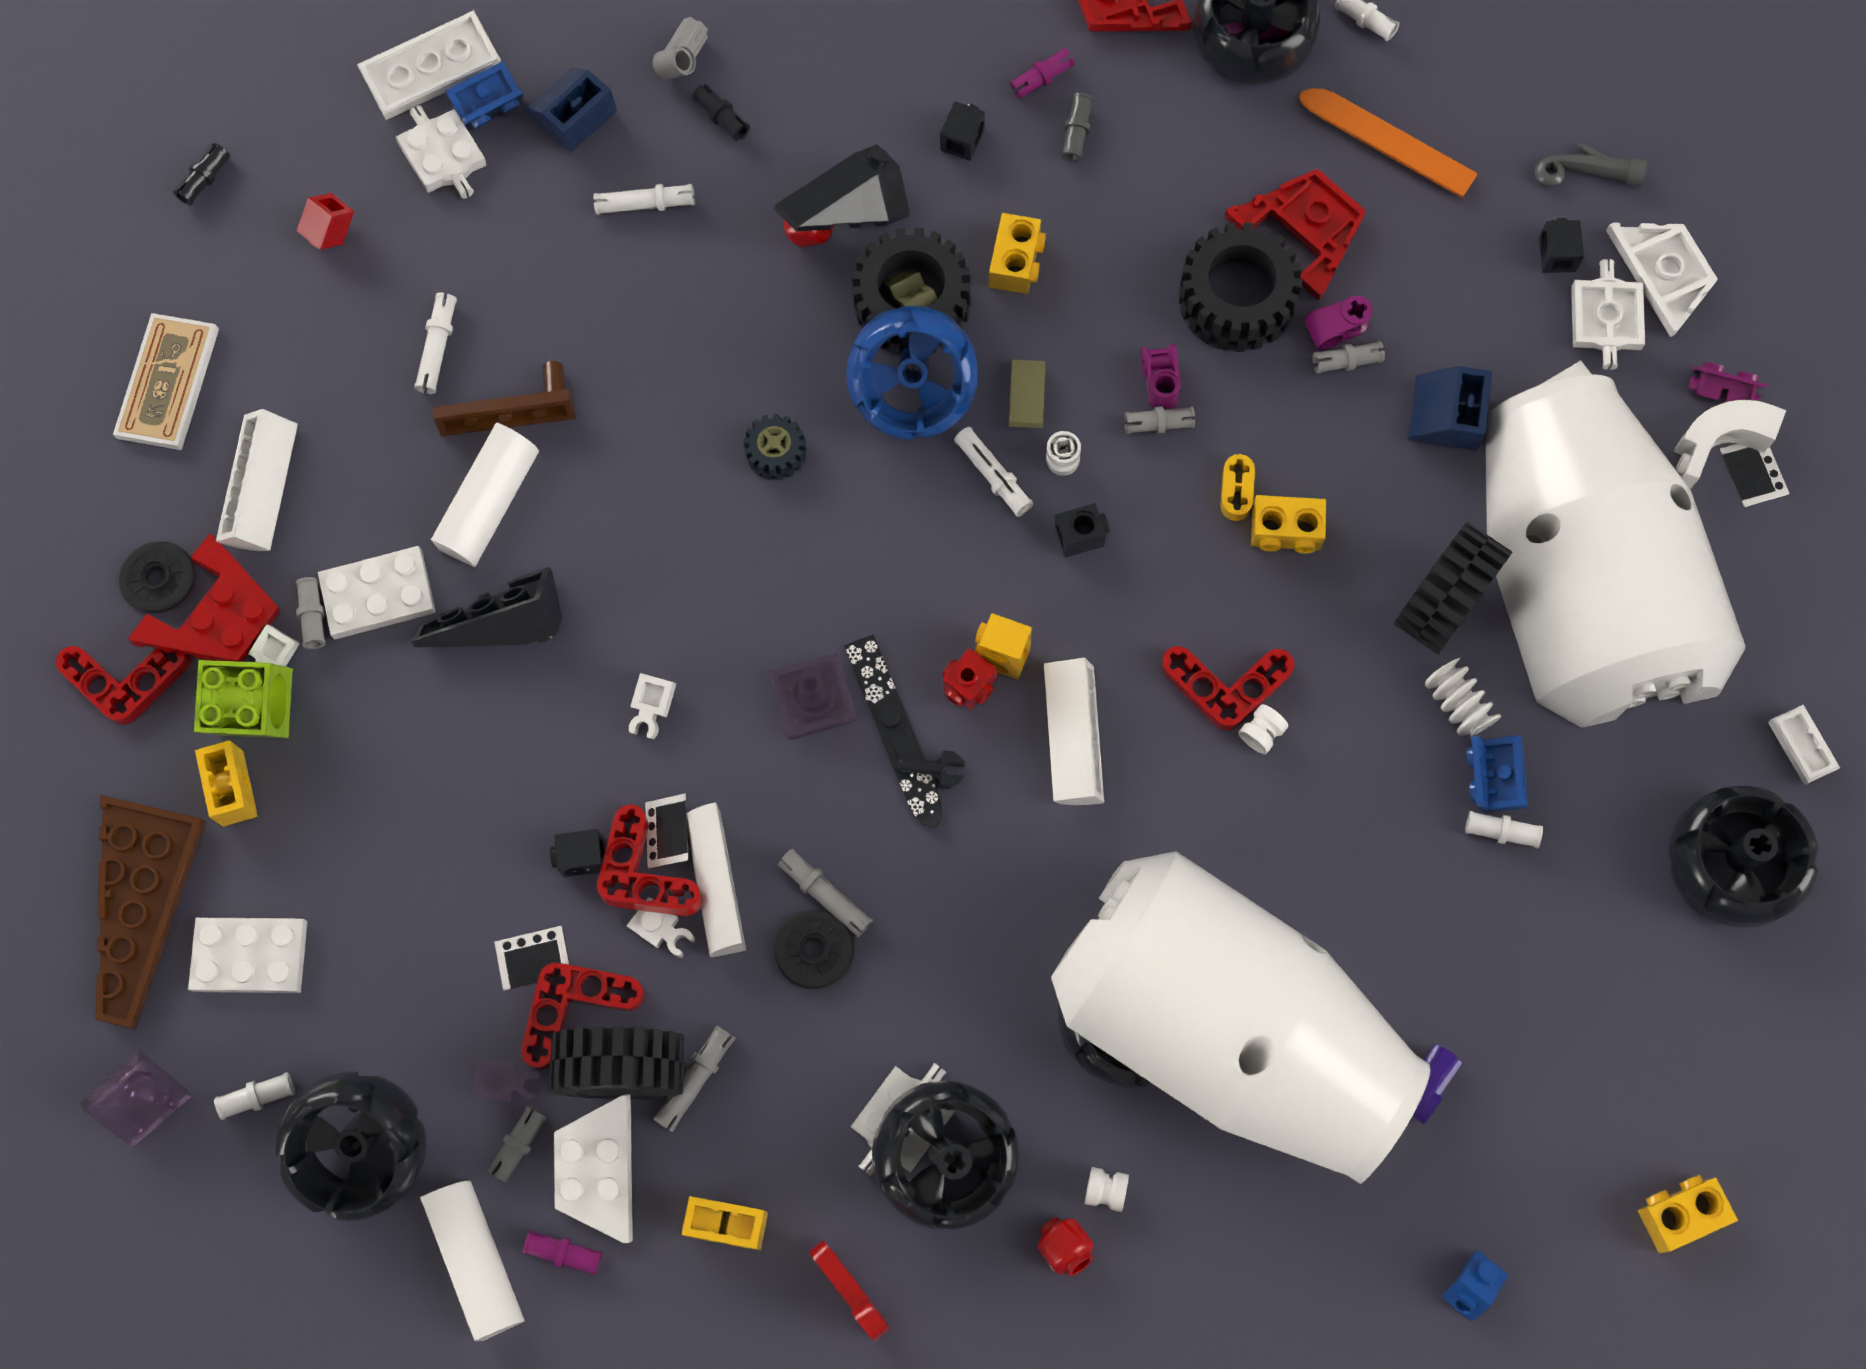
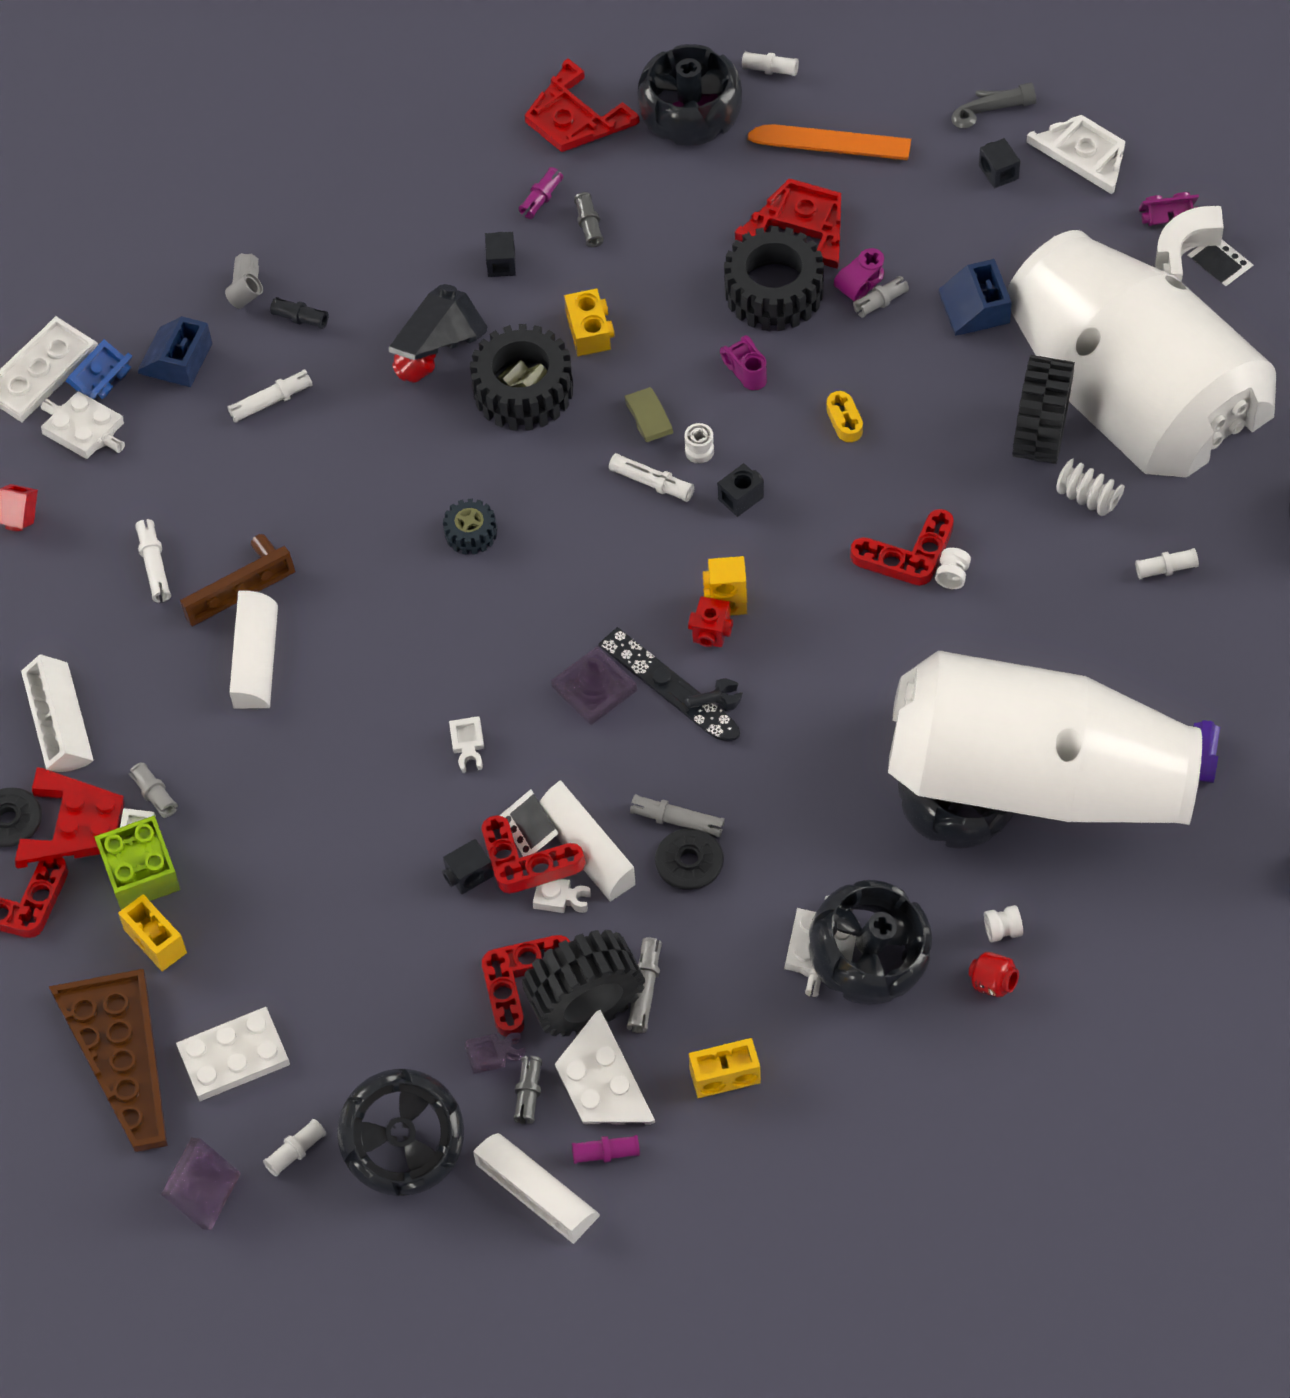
camera: 25 degrees left, 15 degrees down
(376, 592) = (199, 755): white plate -> none
(512, 617) = (328, 719): black wedge -> none
(526, 955) = (463, 961): black sticker -> none
(863, 1308) = (868, 1081): red beam -> none
(870, 380) = (587, 442): blue wheel -> none
(1073, 732) = (810, 628): white brick -> none
(1159, 420) = (760, 393): light grey pin -> none
(1288, 514) = (896, 423): yellow brick -> none
(1498, 773) = (1143, 526): blue bracket -> none
(1608, 314) = (1058, 195): white plate -> none

